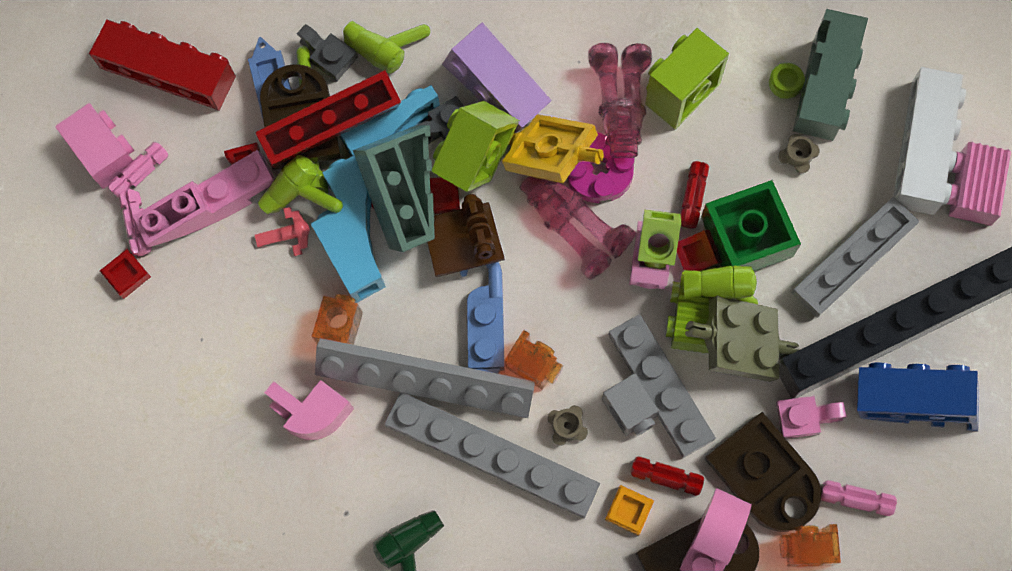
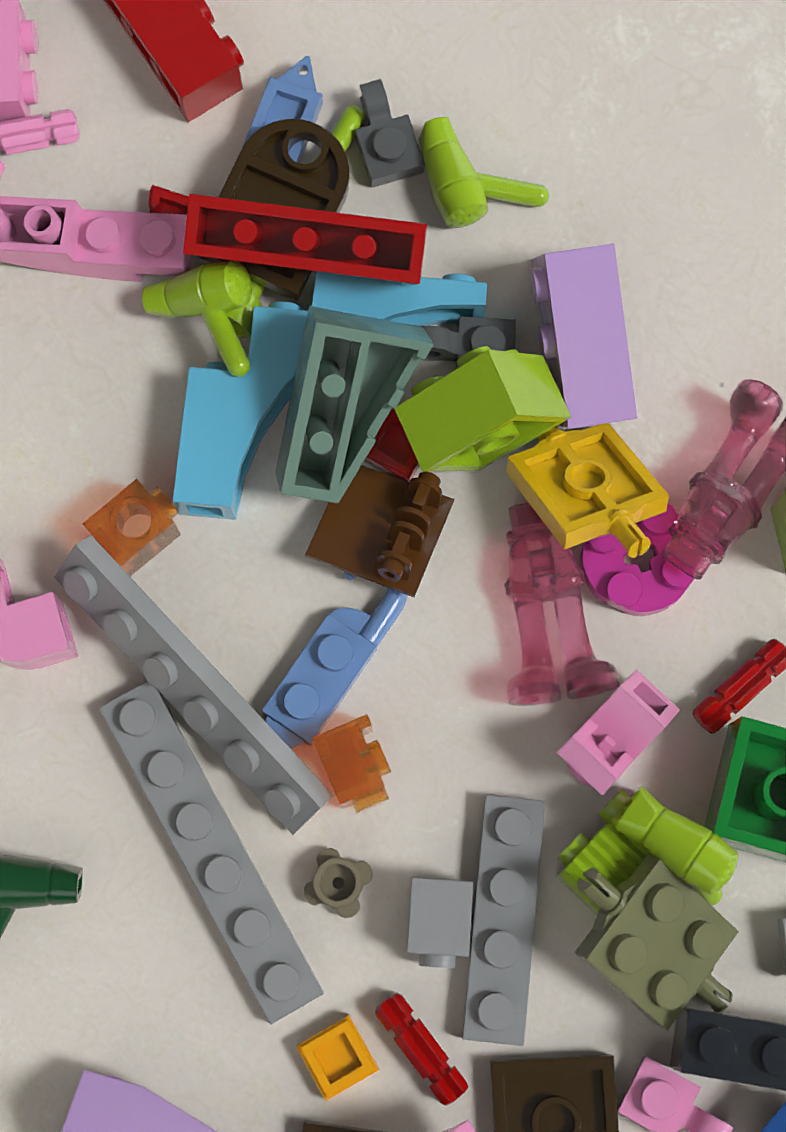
camera: 30 degrees right, 5 degrees up
(298, 230) = (173, 361): coral piece -> none
(659, 223) = (655, 705): lime brick -> none
(698, 252) = (686, 773): red plate -> none

